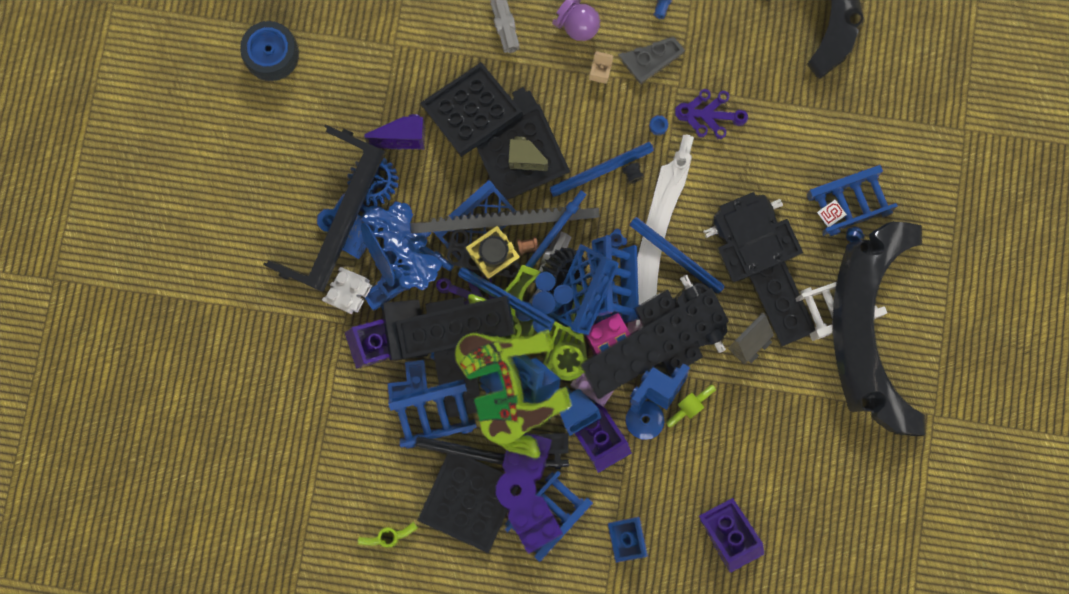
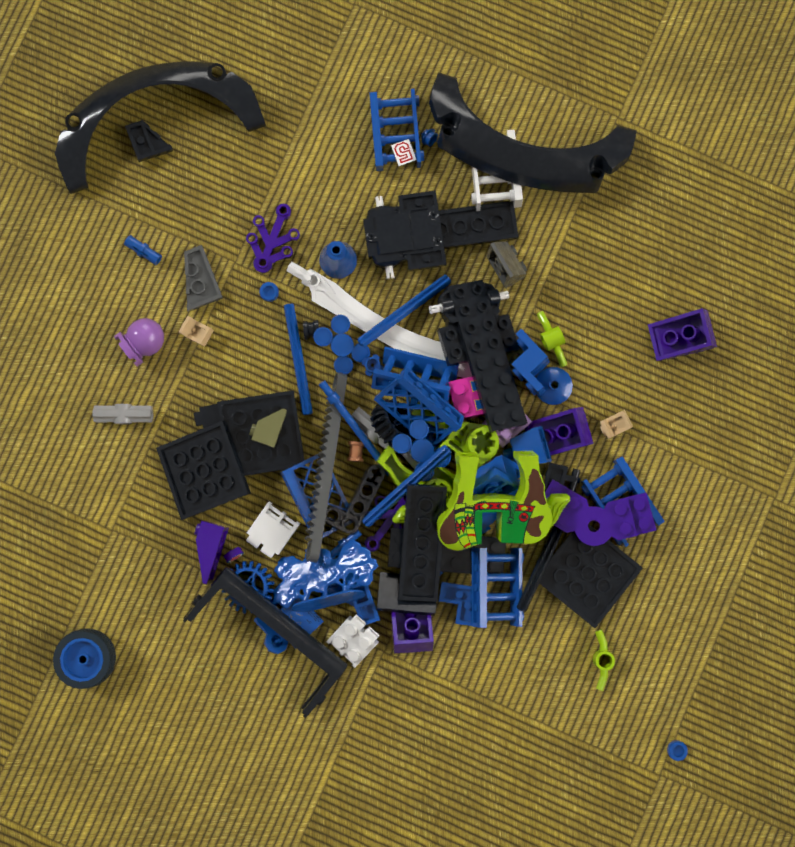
camera: 75 degrees left, 5 degrees up
(399, 159) = (233, 554): none -> dark purple tile
(431, 188) = (271, 531): none -> white plate
(492, 252) = (357, 487): piece -> none
(623, 490) = (615, 424): none -> tan bracket
(627, 204) = (341, 344): none -> blue piece
(627, 539) = (662, 432): blue slope -> none
(709, 180) = (338, 259): none -> blue cone

